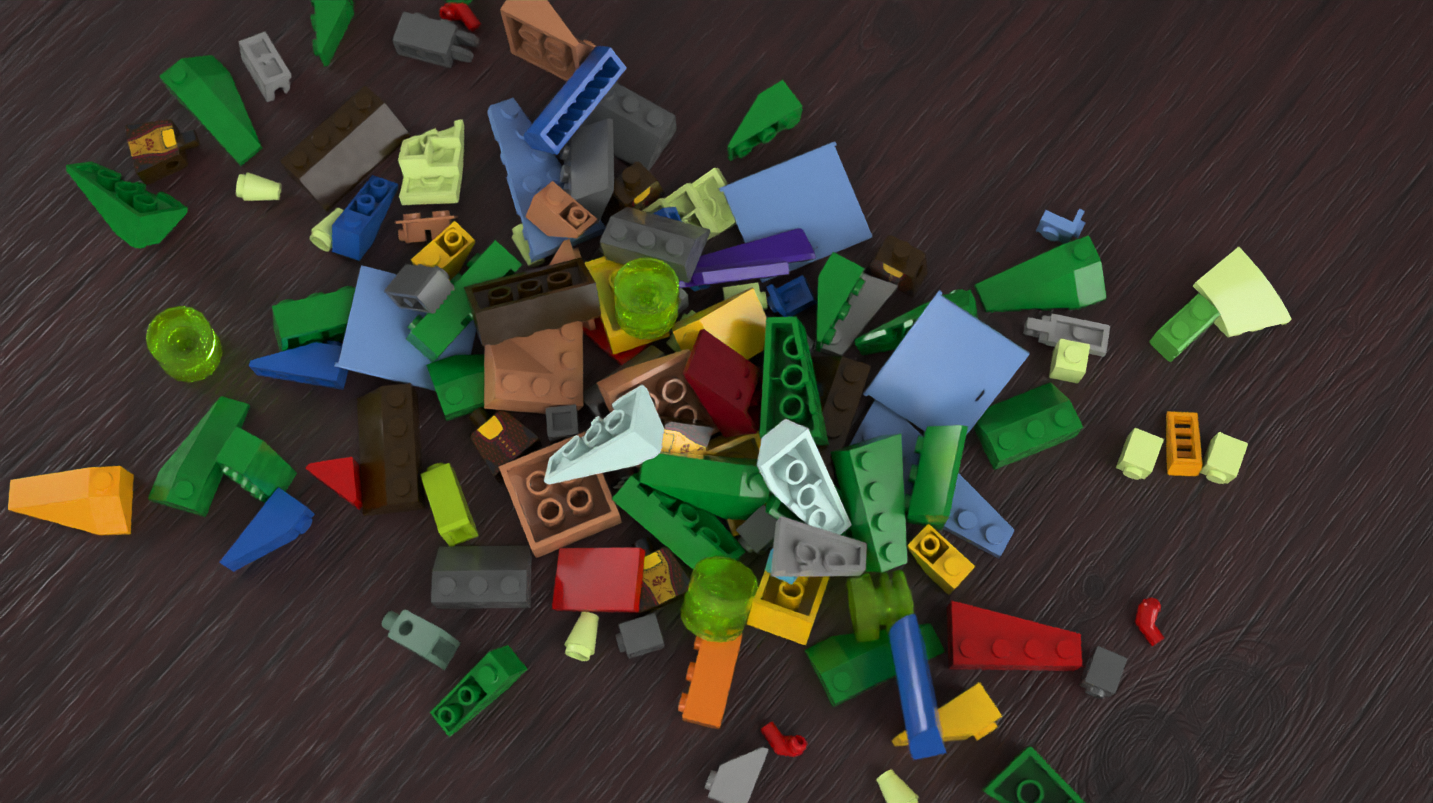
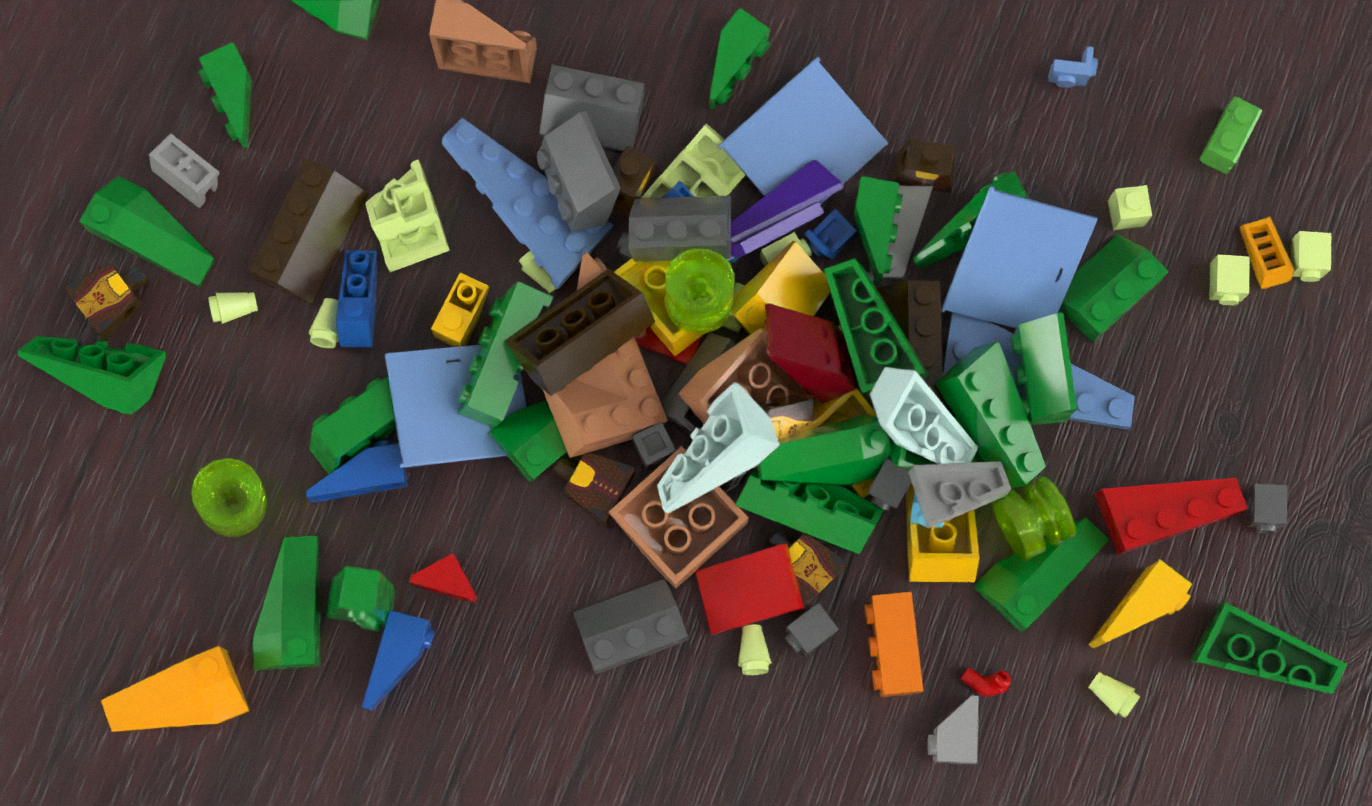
camera: 25 degrees left, 5 degrees up
(390, 450) = (483, 533): dark brown slope -> none
(415, 228) = (416, 289): nougat hinge -> none
(420, 288) = (459, 357): dark grey brick -> none
(421, 637) = (605, 709): sand green torso -> none
(432, 40) = (352, 83): dark grey hinge -> none
(448, 504) = (568, 565): lime slope -> none
(460, 12) = (367, 42): red arm -> none
(478, 689) = (670, 740): green slope -> none
(559, 213) = (571, 231): nougat slope -> none
(575, 101) = (539, 104): blue brick -> none
(718, 599) = (879, 567): clear neon green wheel -> none
(916, 689) = (1102, 587): blue brick -> none
(940, 559) = (1075, 451): yellow slope -> none
(1056, 279) = (1088, 127): green wedge -> none
(1058, 327) = (1107, 177): light grey hinge -> none
(1146, 619) = (1290, 440): red arm -> none
(1241, 296) = (1274, 83): yellowish green slope -> none

